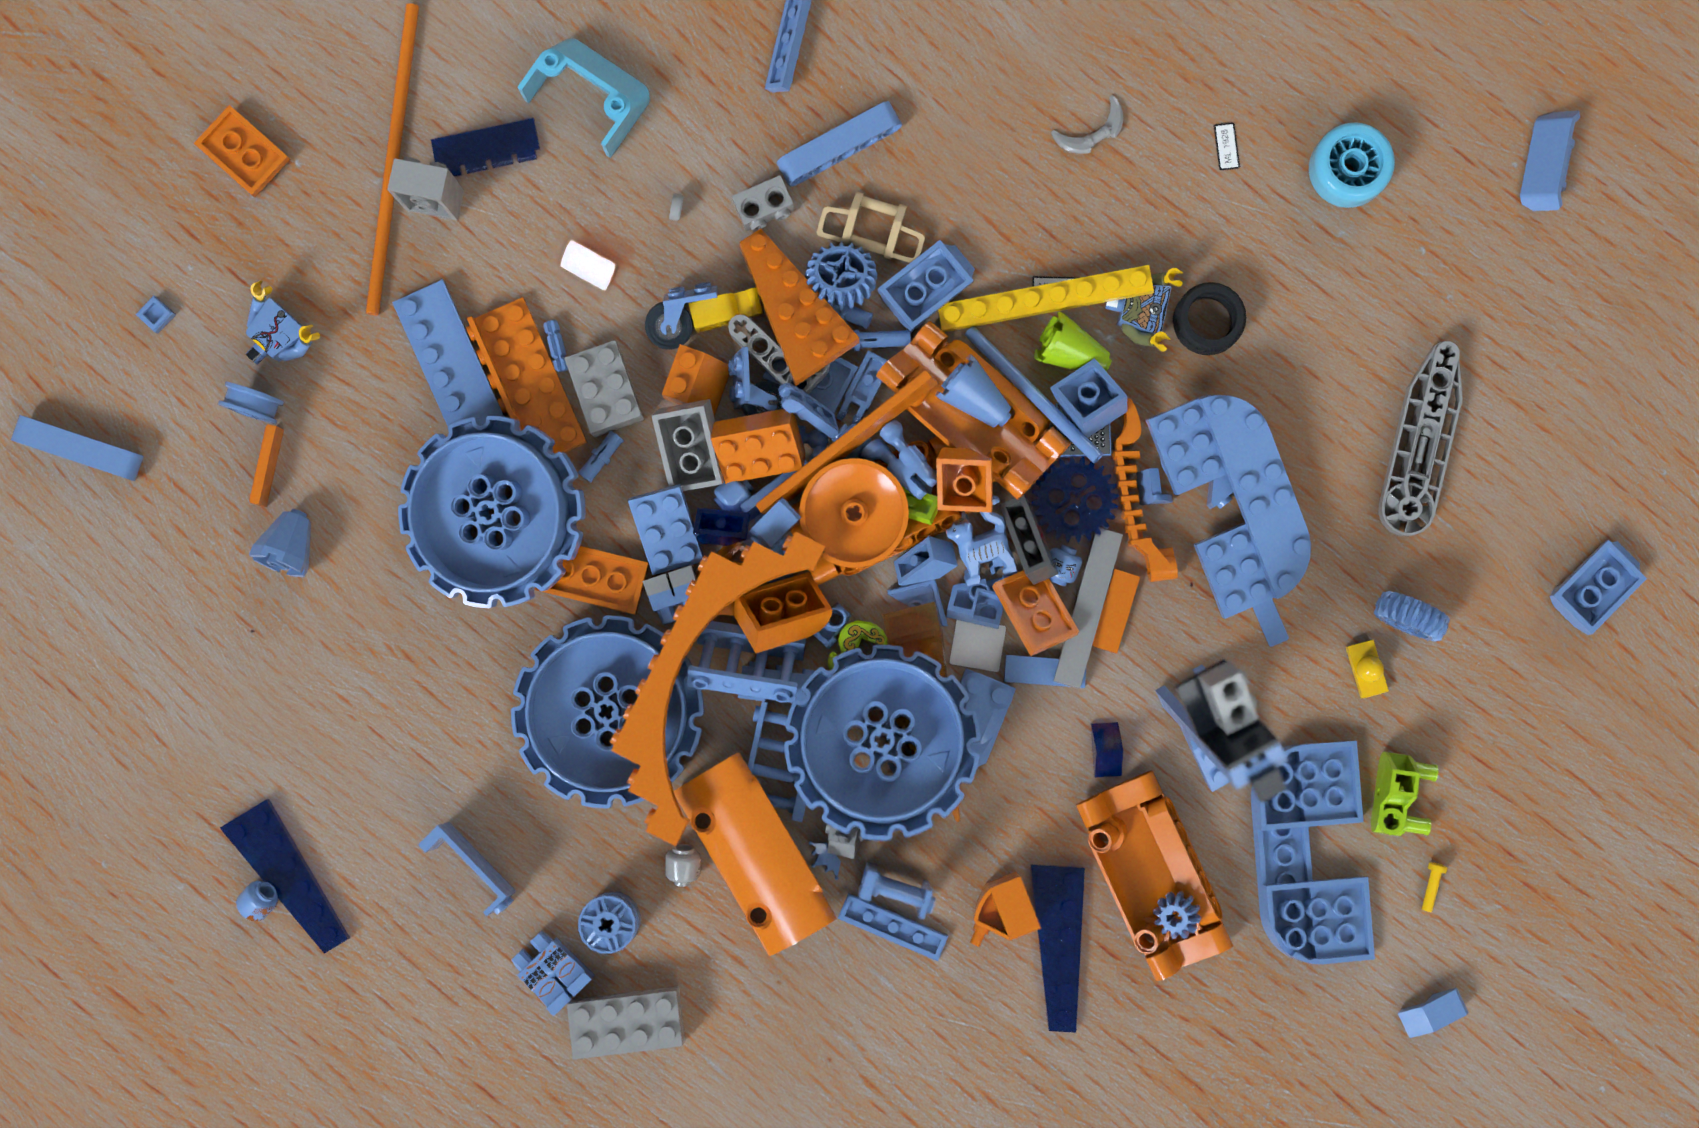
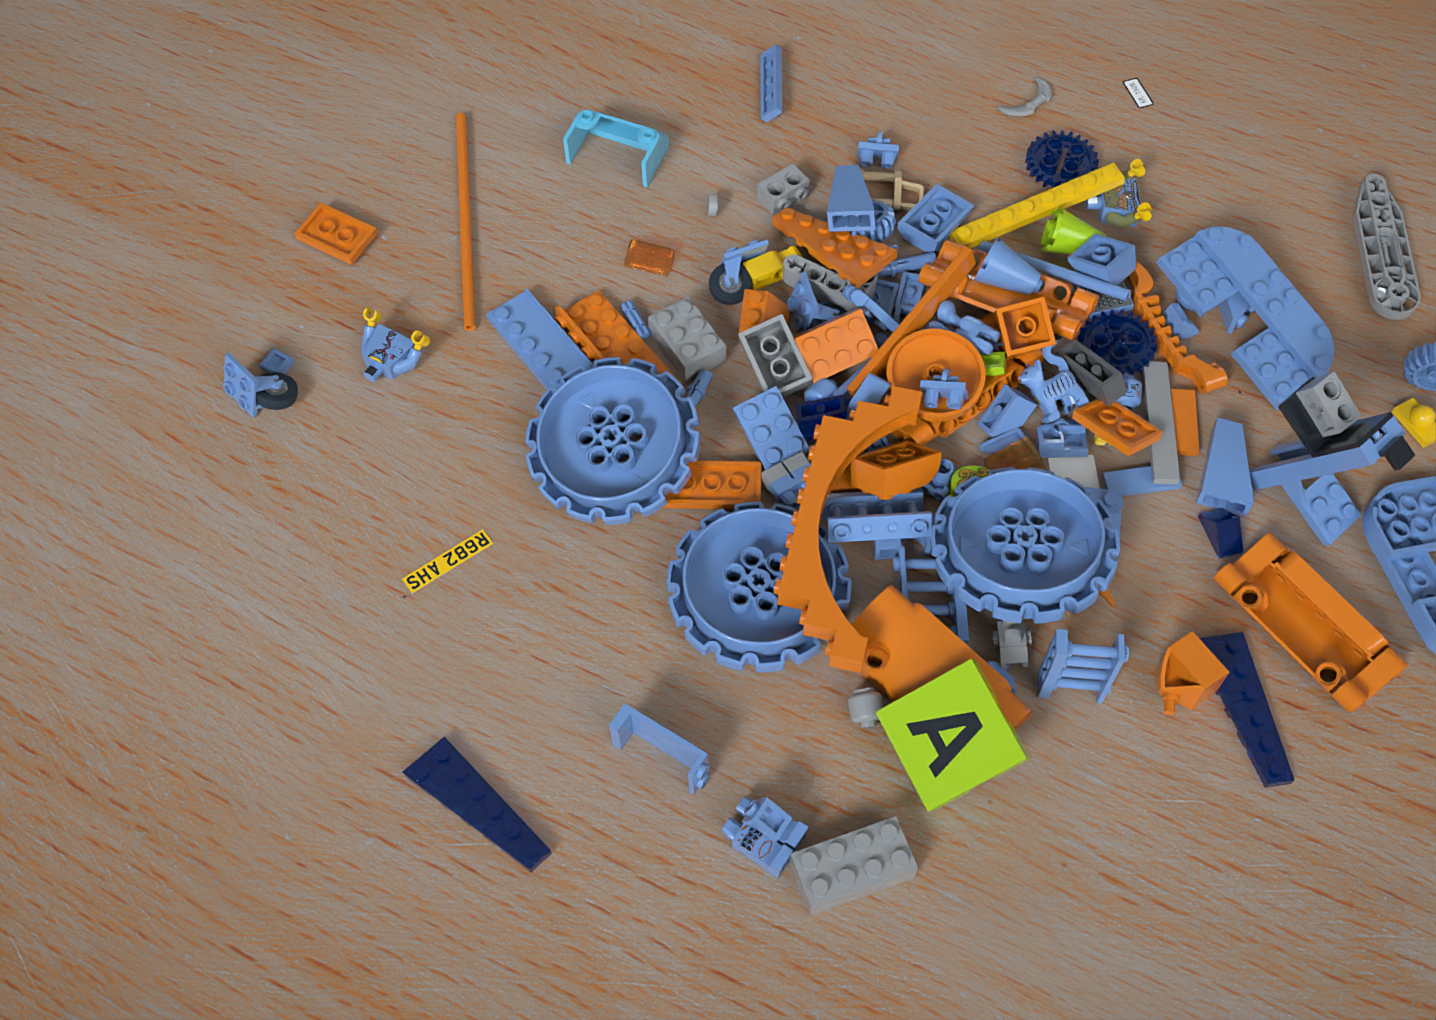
camera: 15 degrees left, 25 degrees down
(77, 448) = (218, 474): medium blue beam -> none
(143, 355) = (252, 392): none -> medium blue plate
(250, 403) = (376, 403): medium blue wheel -> none
(257, 901) = (452, 830): medium blue head -> none
(266, 465) = (396, 455): orange tile -> none
(285, 544) = (424, 514): medium blue cone -> none
(302, 600) = (447, 561): none -> yellow sticker
(425, 188) = (502, 219): light grey brick -> none
(490, 143) = (537, 197): clear blue windscreen -> none
(550, 967) = (766, 818): none -> medium blue bracket
(611, 906) = (811, 785): medium blue wheel -> none
(750, 928) = (952, 735): none -> lime tile
(824, 256) = (850, 202): none -> medium blue slope
(839, 143) = (833, 140): medium blue beam -> none
(864, 547) = (944, 387): none -> medium blue hips
(875, 170) = (878, 148): none -> medium blue hips
(893, 926) = (1083, 724): medium blue tile -> none
(1117, 245) = (1045, 155): none -> clear blue gear
(1135, 683) = (1226, 470): none -> medium blue slope
(1186, 910) = (1356, 647): medium blue gear -> none
(1228, 299) = (1181, 182): black tyre -> none
(1365, 151) = (1242, 78): medium azure wheel -> none
(1548, 161) = (1389, 55): medium blue piece -> none

